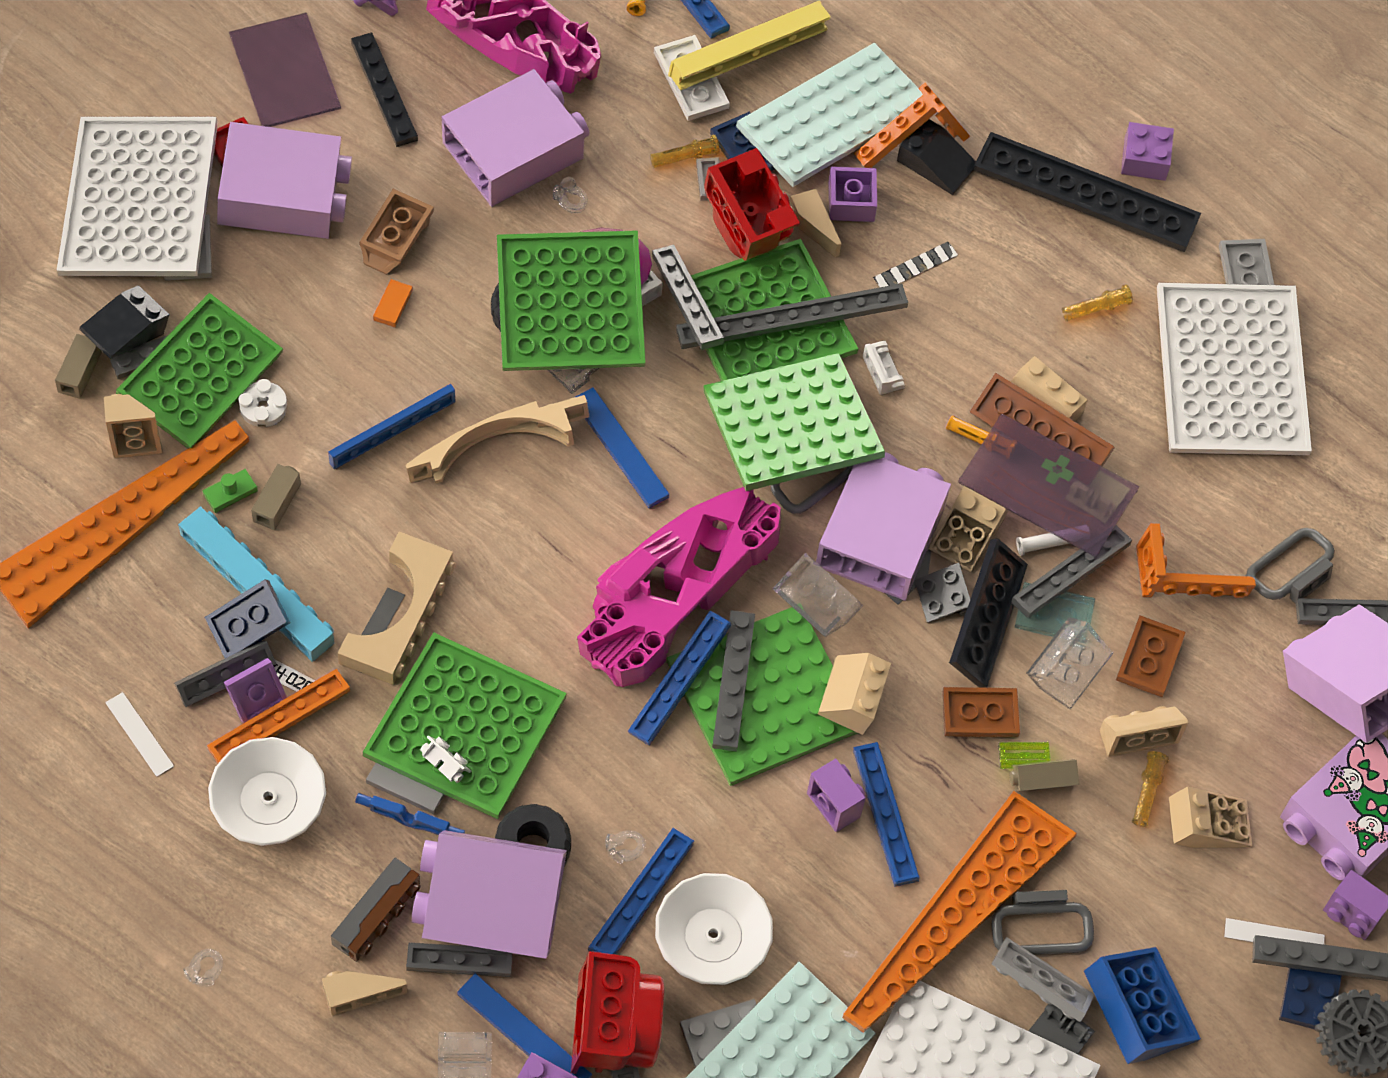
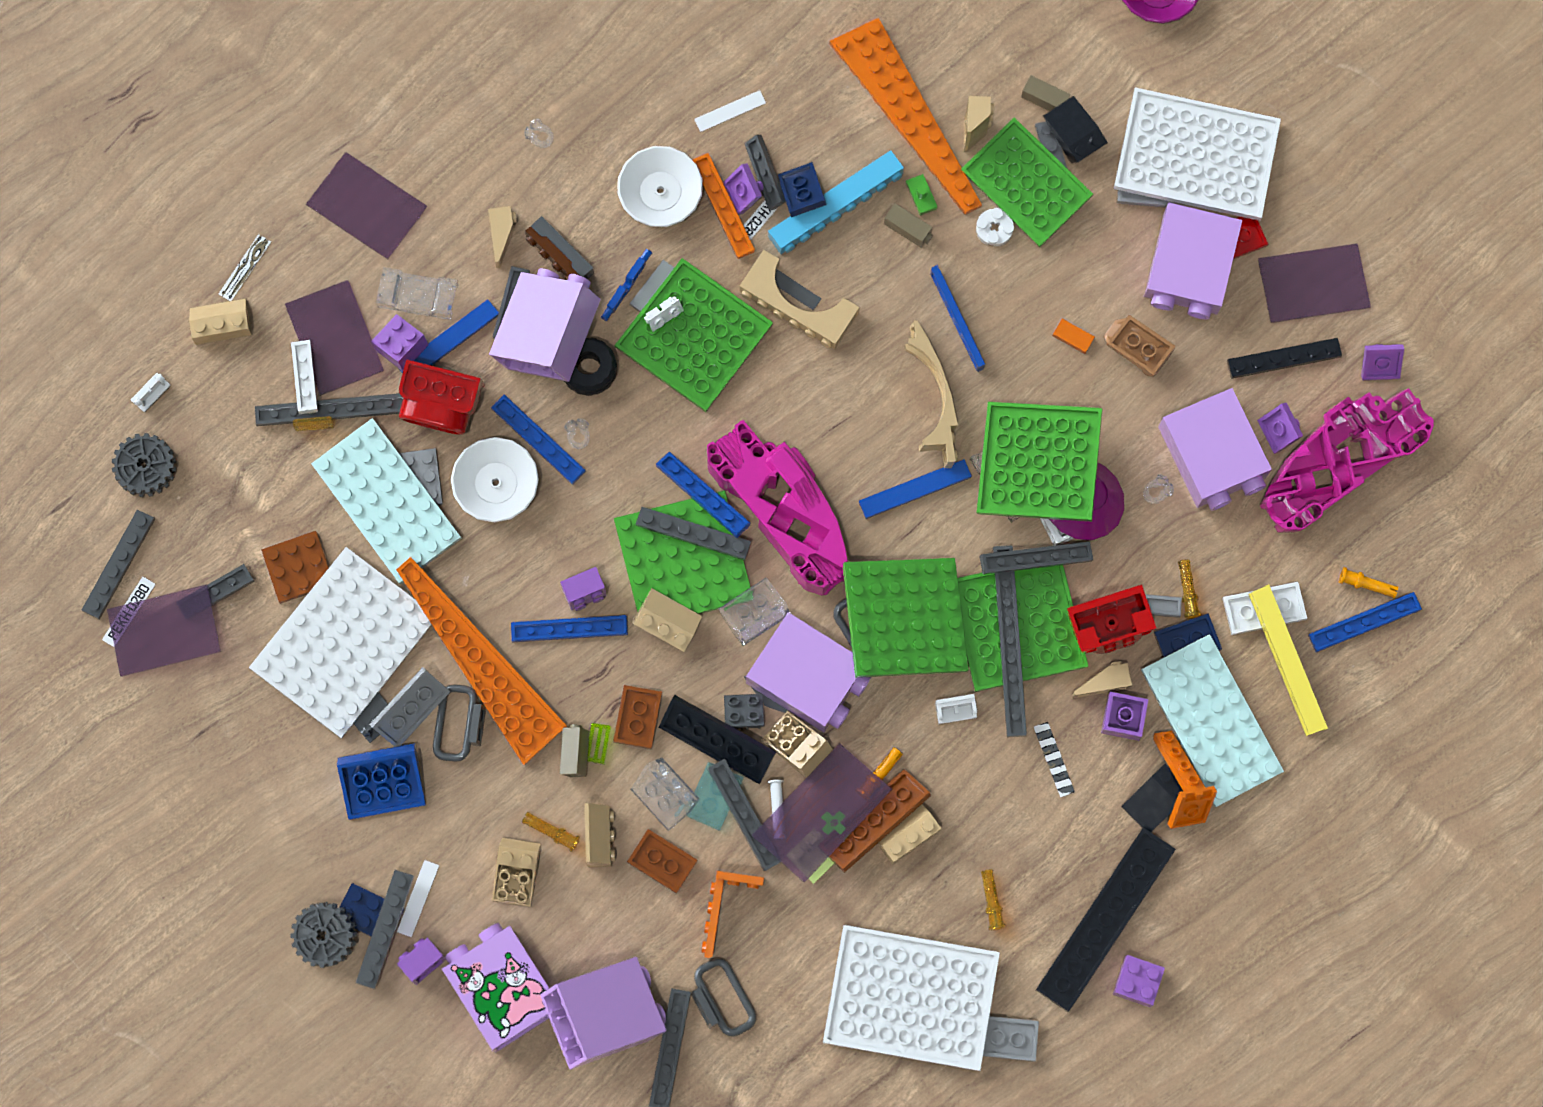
camera: 105 degrees right, 15 degrees up
(475, 75) = (1280, 428): none -> medium lavender tile

